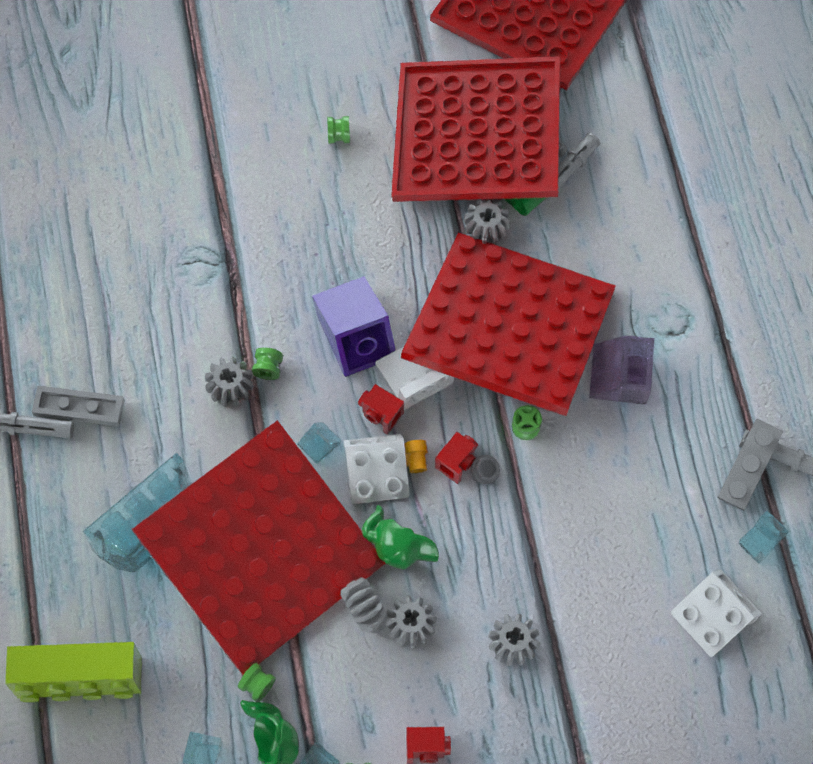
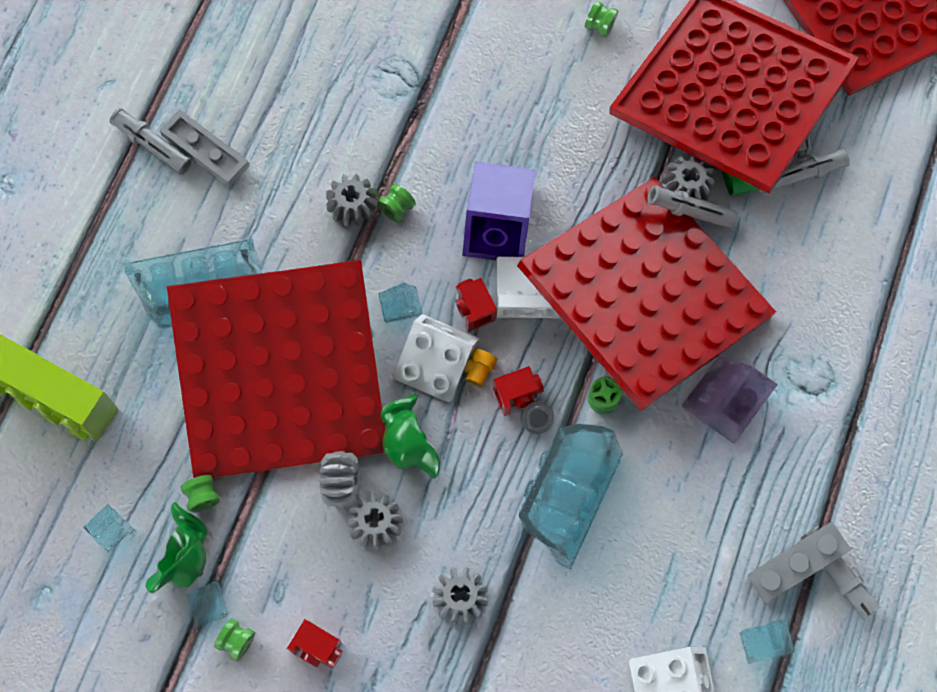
camera: 30 degrees right, 5 degrees up
(495, 241) = (681, 203): none -> light grey pin
(547, 506) = (570, 488): none -> clear light blue windscreen

